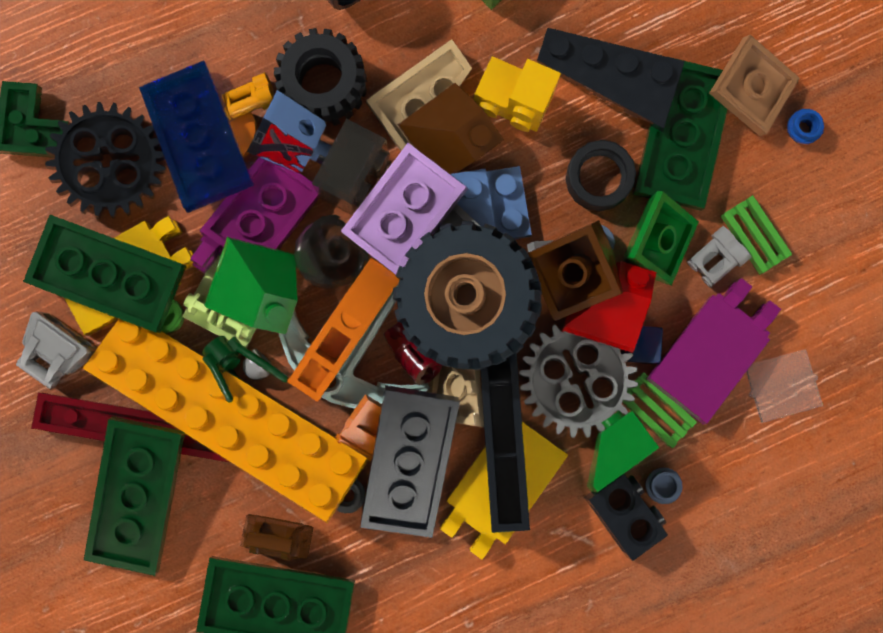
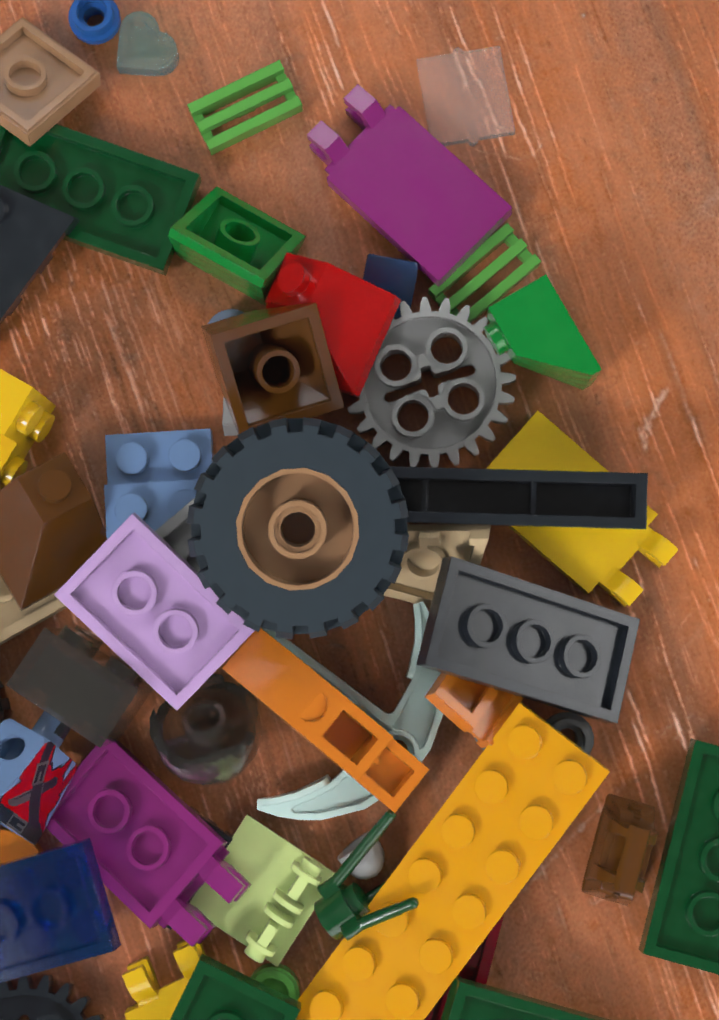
camera: 85 degrees left, 0 degrees up
(254, 286) = (245, 849): green slope -> none
(409, 357) = (372, 625): dark red hinge -> none
(615, 153) = (102, 293): black tyre -> none
(619, 520) = (637, 345): black brick -> none
(663, 485) = (592, 280): sand blue plate -> none
(728, 247) = (260, 148): light grey piece -> none
(789, 162) = (144, 47): none -> clear light blue tile

